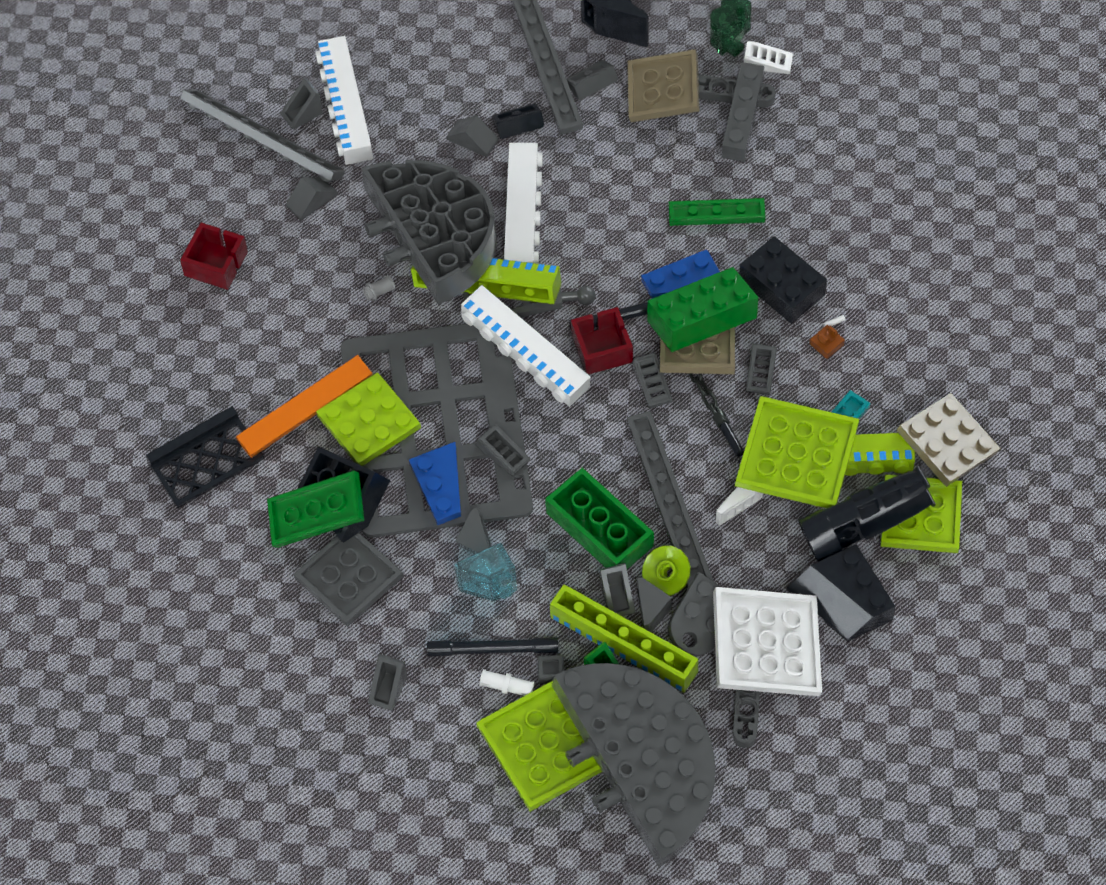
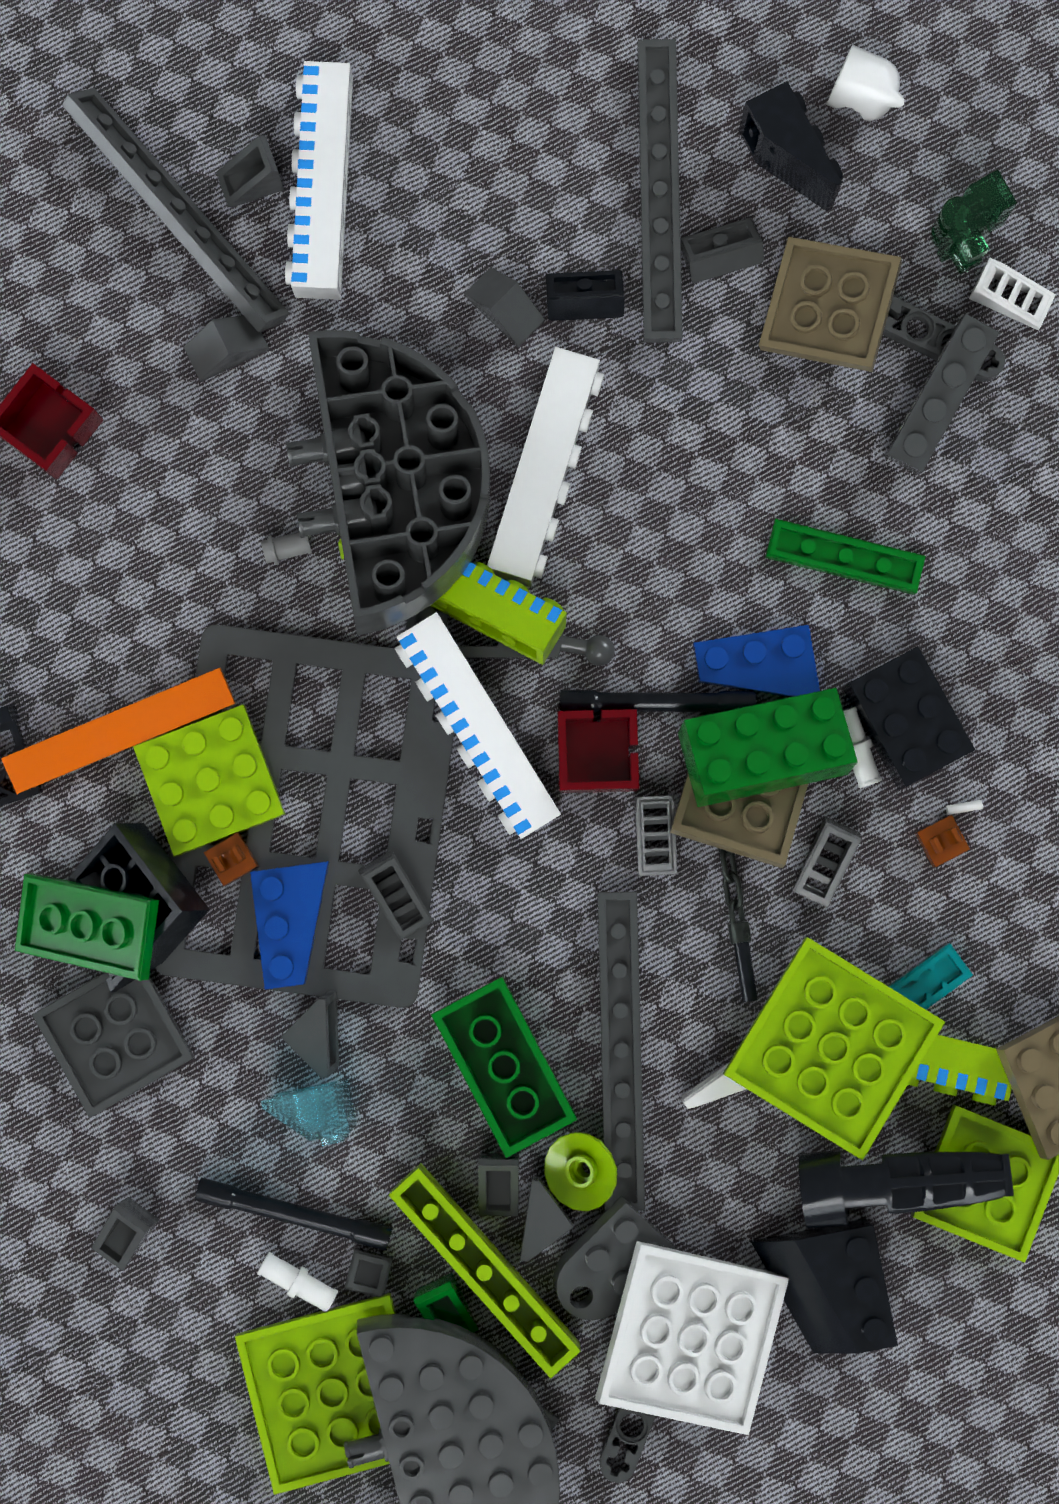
camera: 15 degrees right, 25 degrees up
(394, 458) = (231, 859): none -> dark orange tile
(765, 312) = (866, 769): none -> white pin

